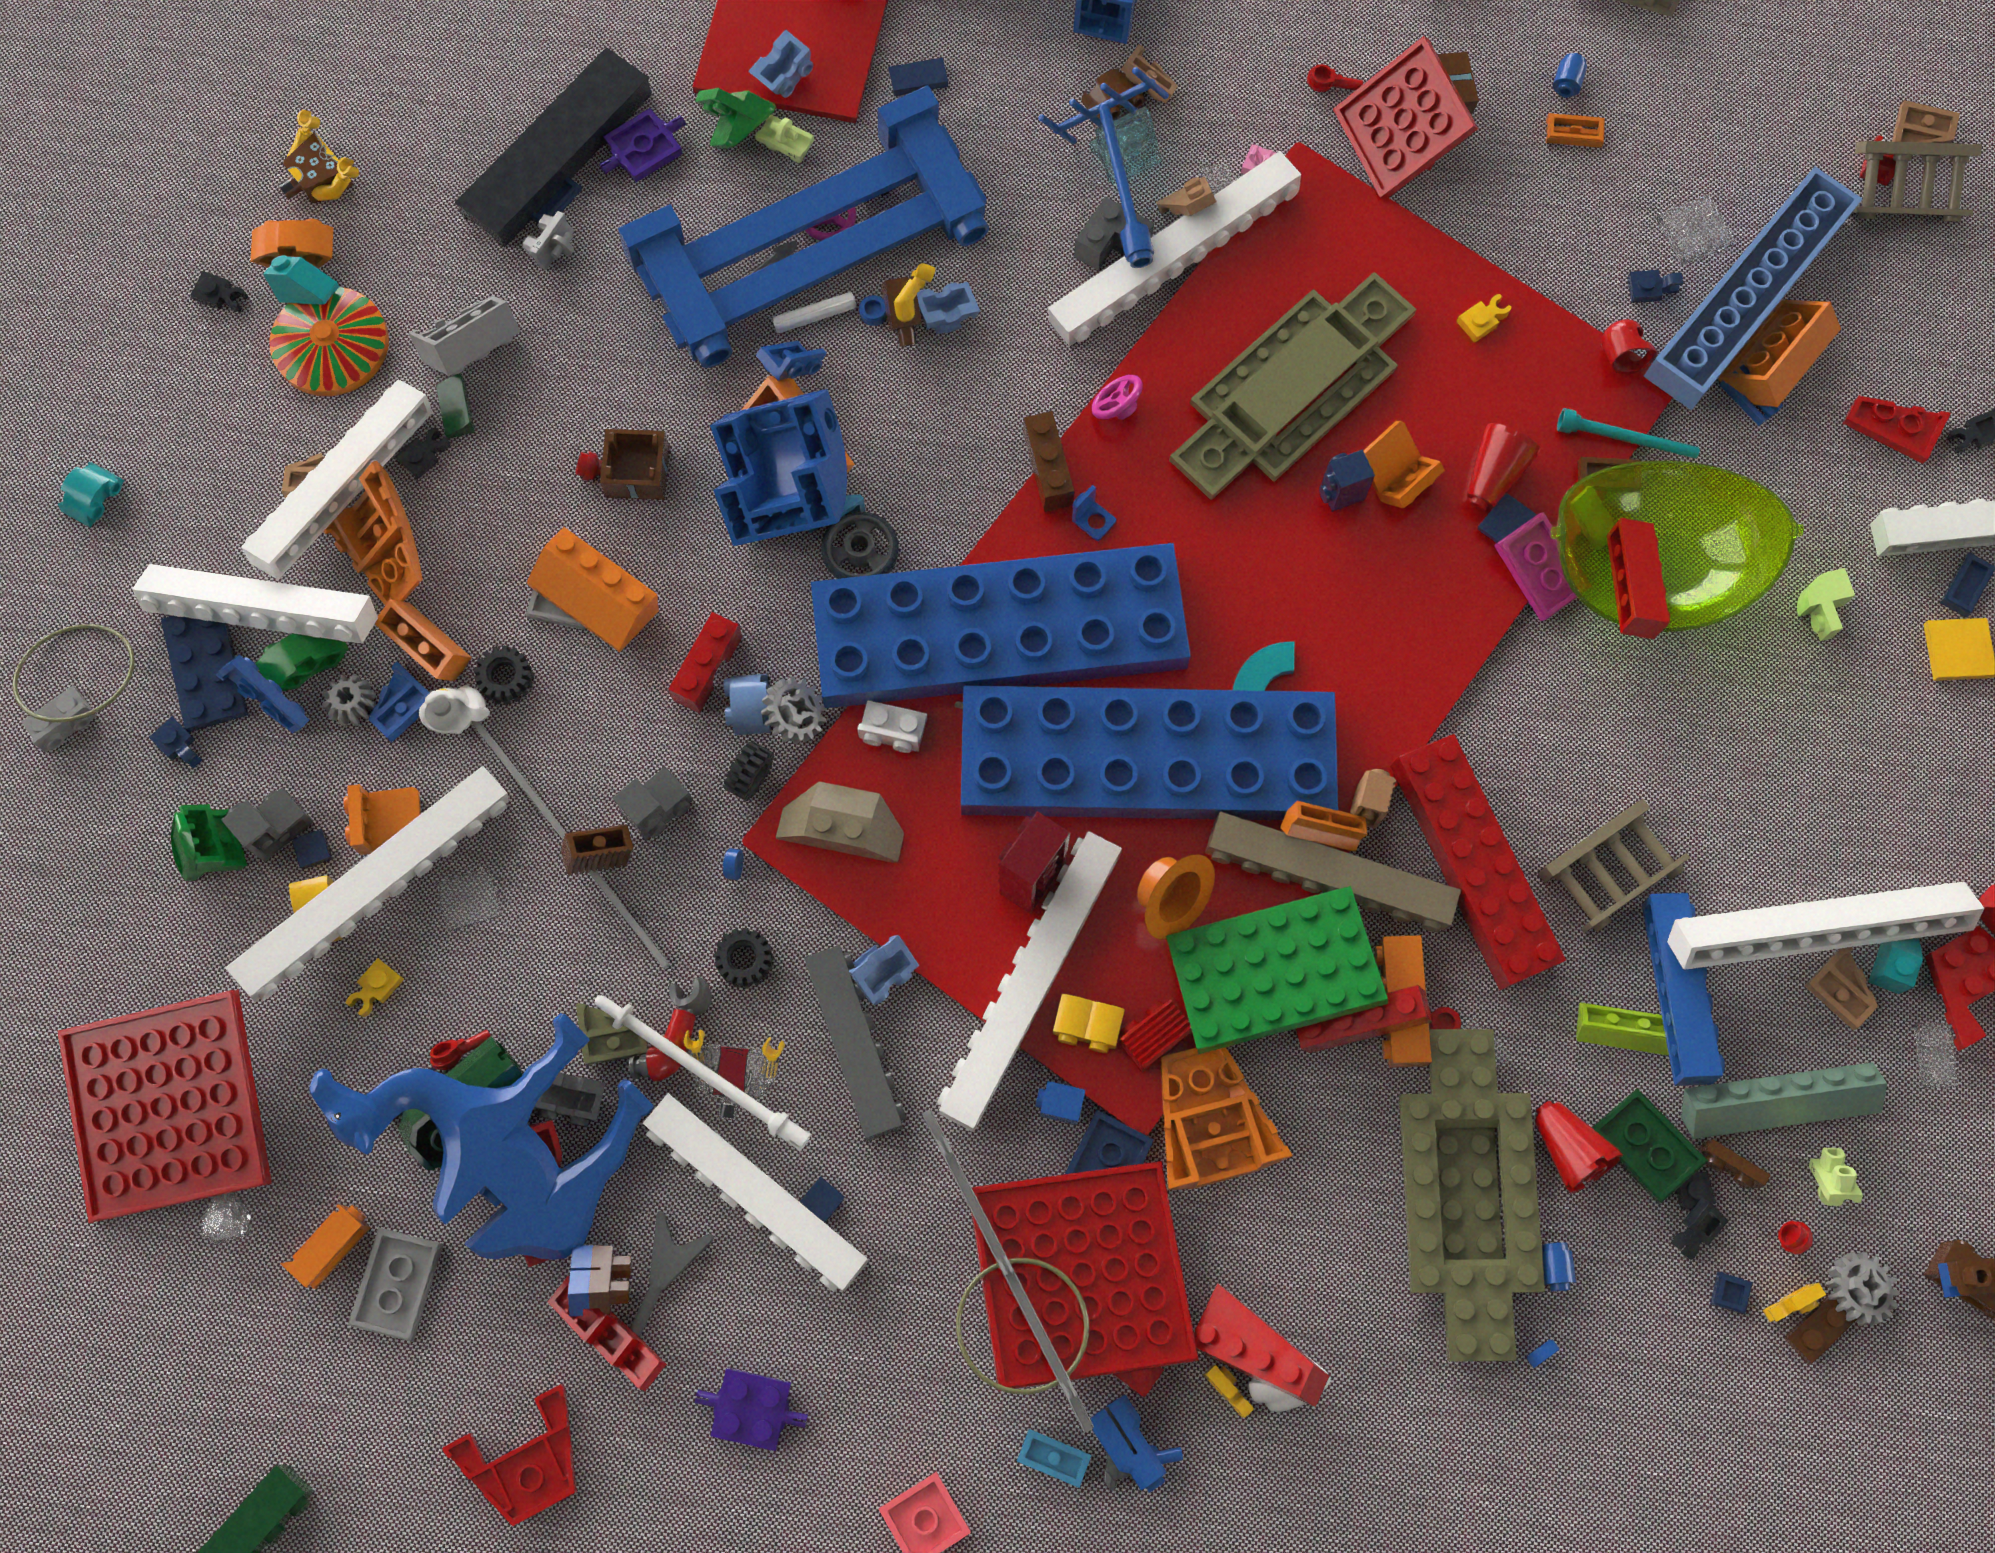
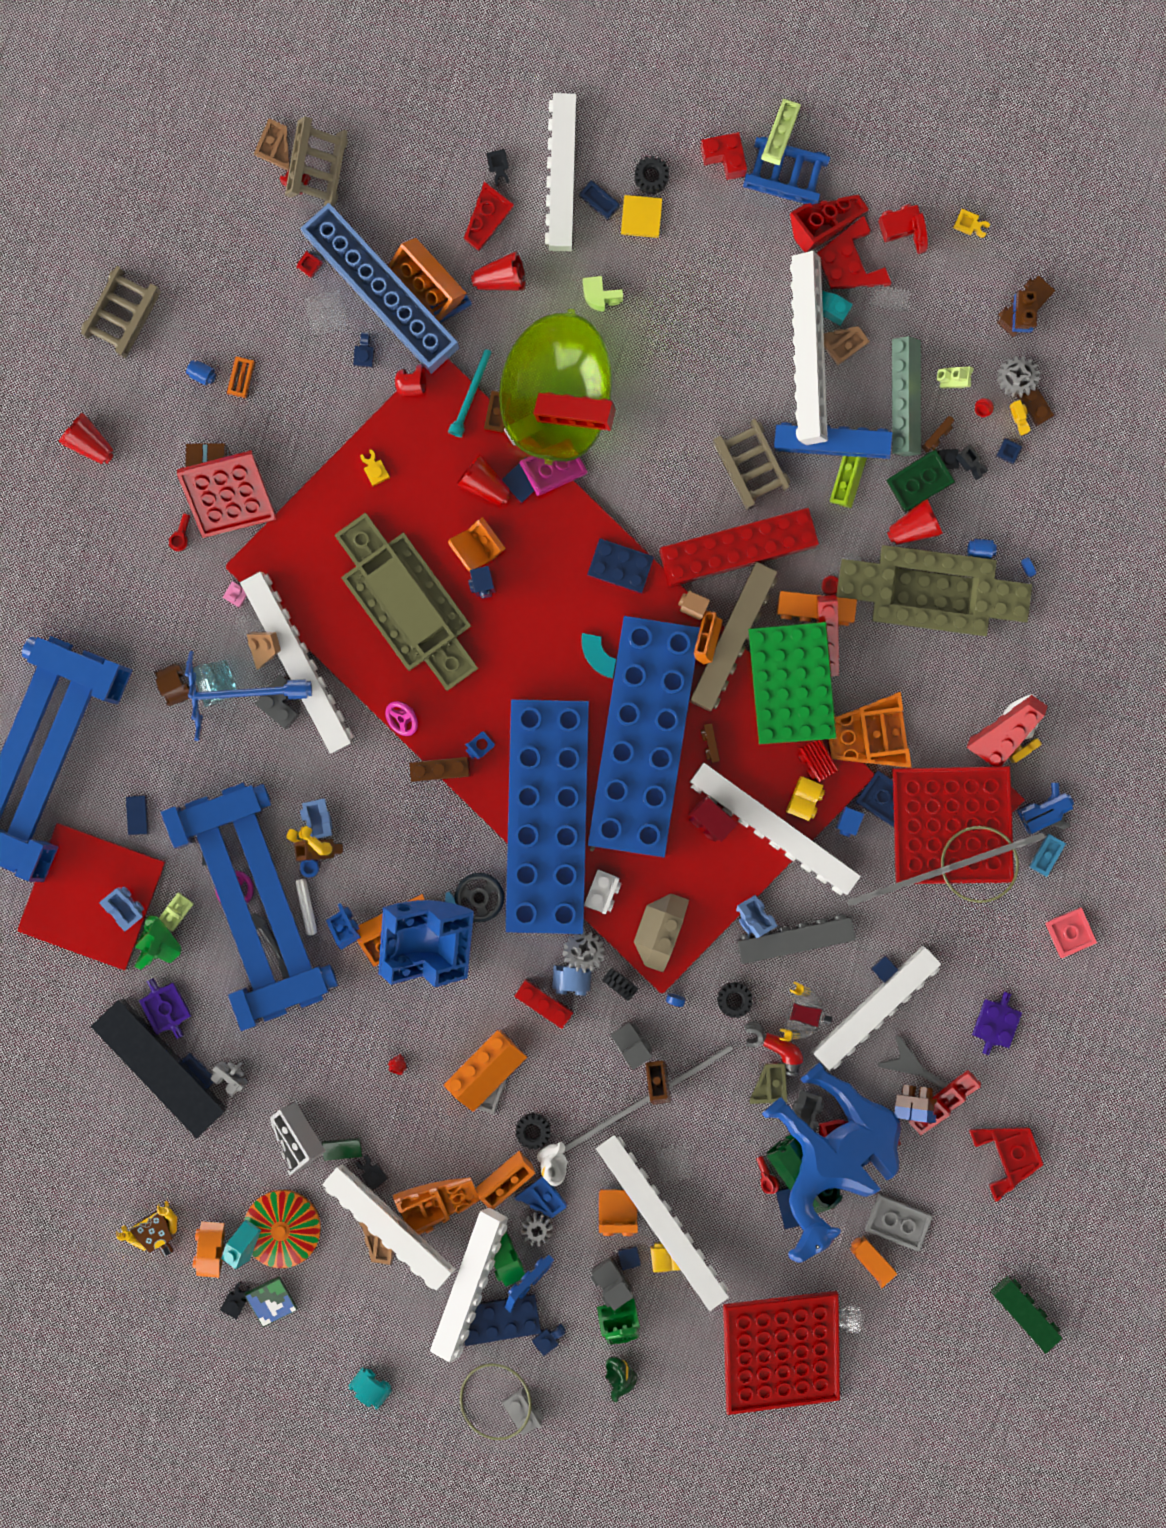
camera: 85 degrees left, 15 degrees up
(117, 859) = (620, 1377): none -> dark green hair
(218, 338) = (271, 1301): none -> tile
(377, 983) = (719, 1223): yellow plate -> none
(634, 464) = (401, 1035): reddish brown container -> none
(777, 1123) = (840, 991): white bar -> none
(1140, 862) = (708, 736): none -> reddish brown plate
(1153, 71) = (160, 658): medium nougat wing -> none
(1175, 893) = (736, 735): orange hose -> none
(1410, 686) = (620, 566): none -> dark blue plate
(1761, 197) = (309, 264): none -> red tile
(1819, 455) = (501, 274): none -> red cone

